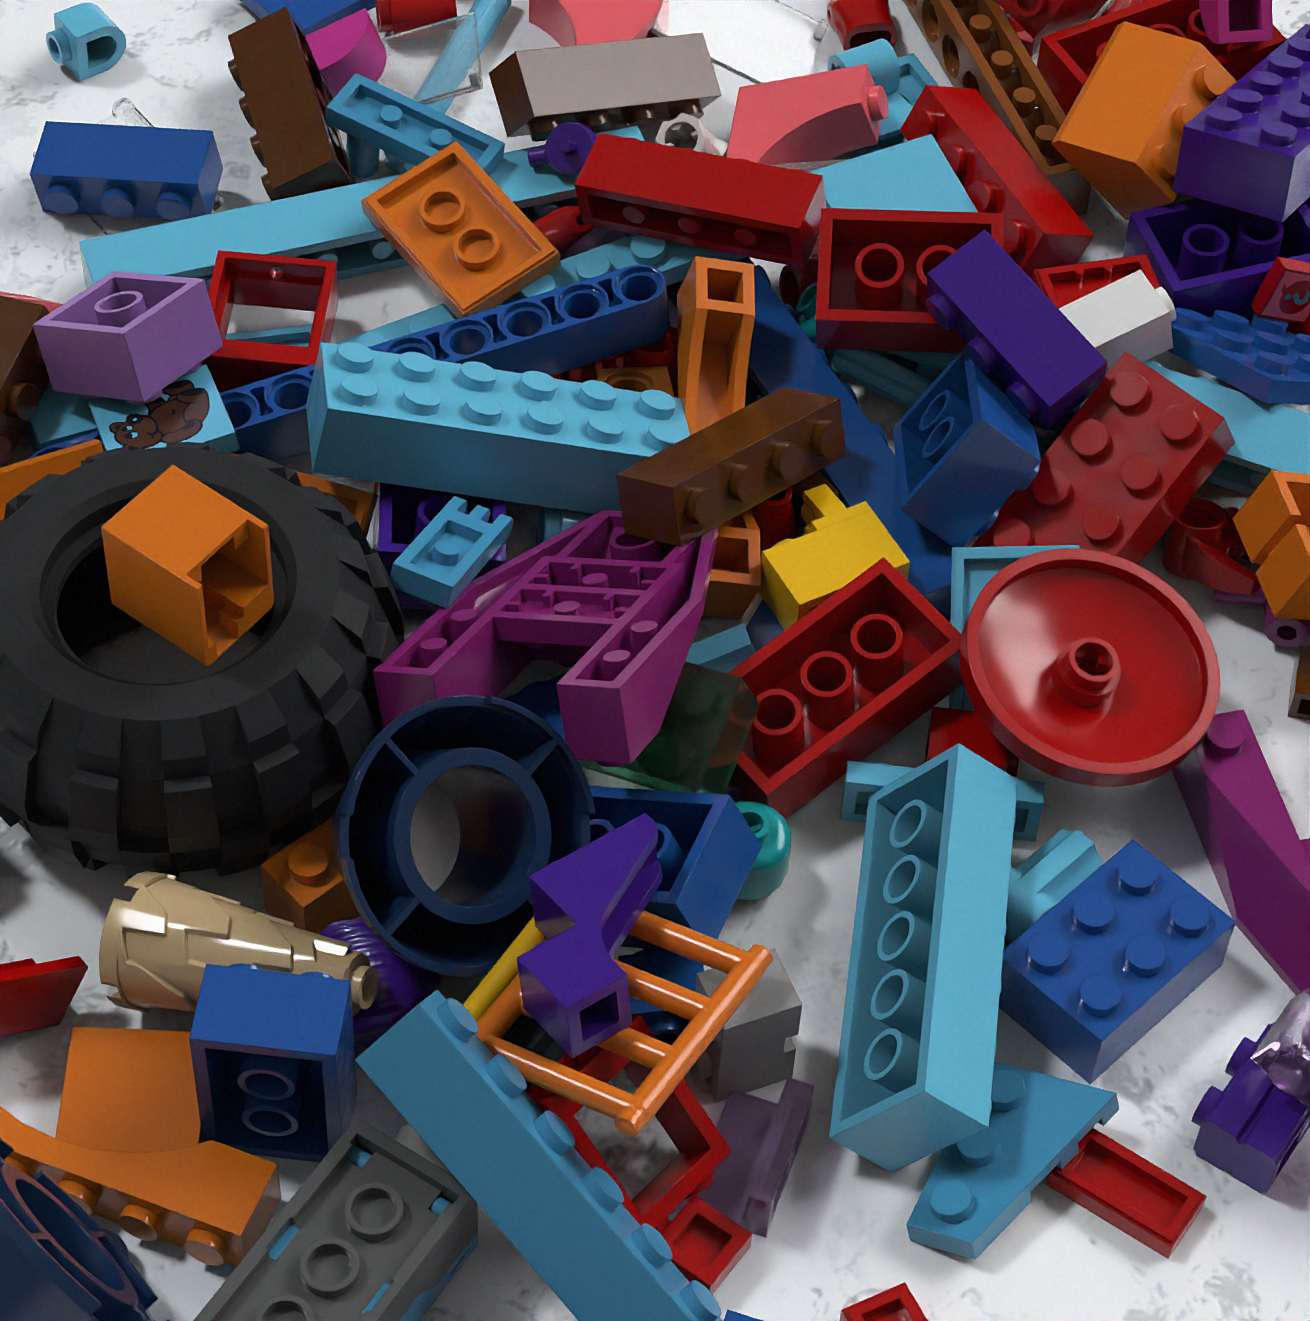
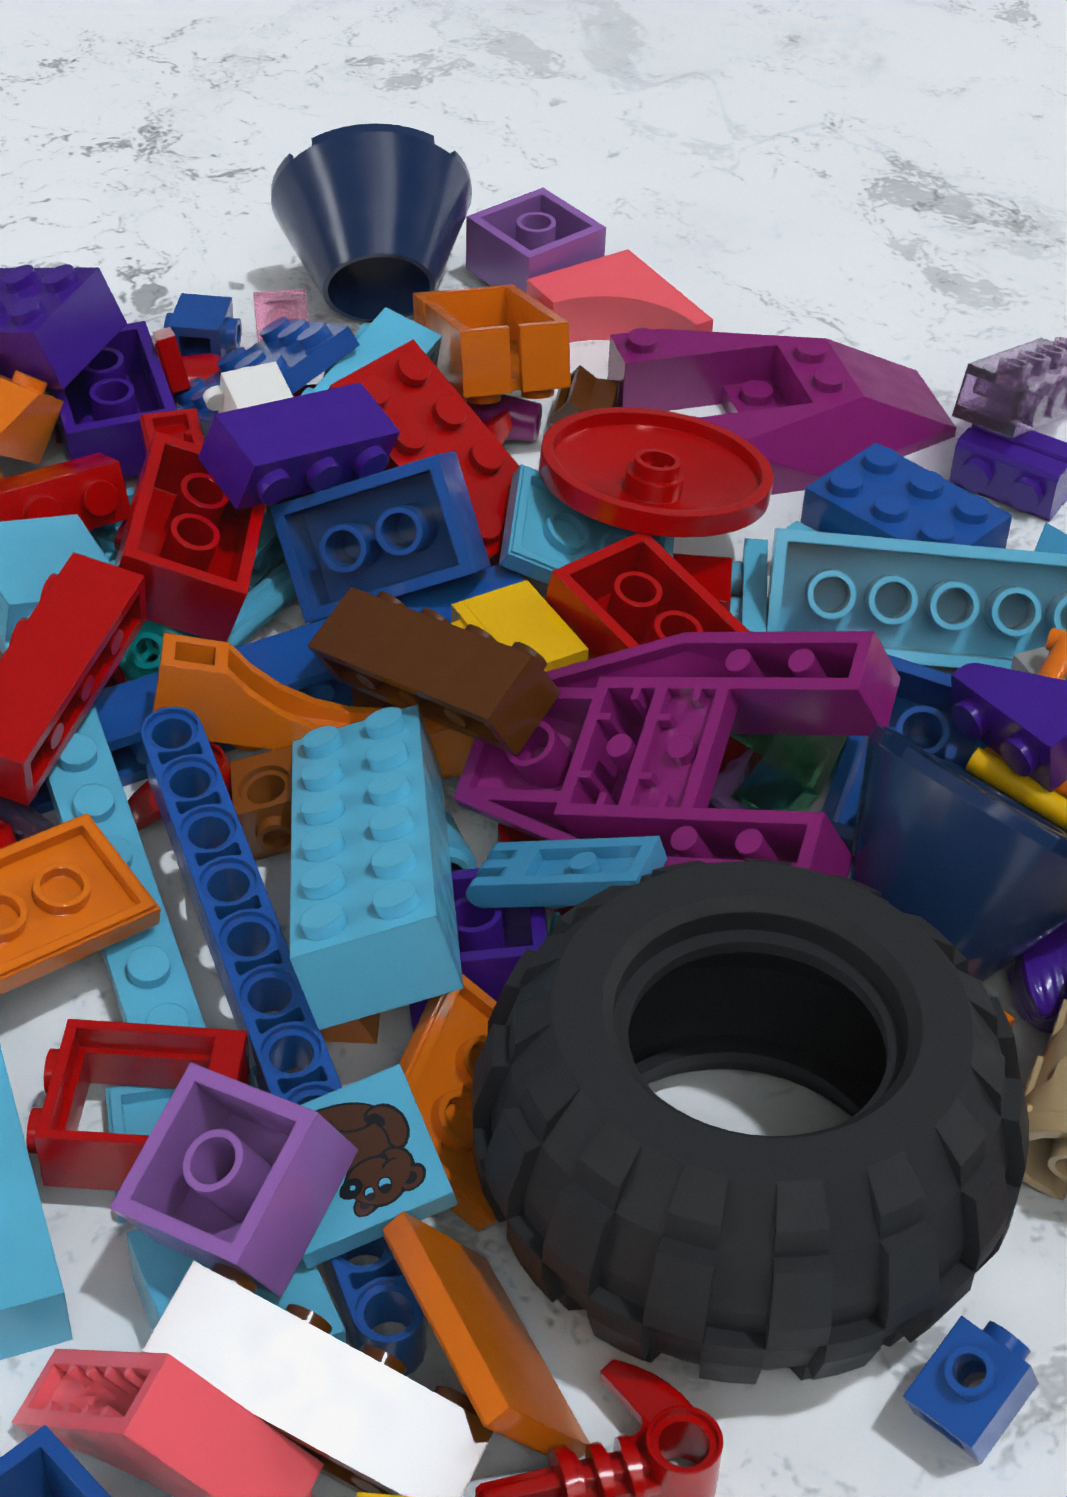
camera: 90 degrees left, 10 degrees down
(189, 564) = (802, 933): orange piece -> none

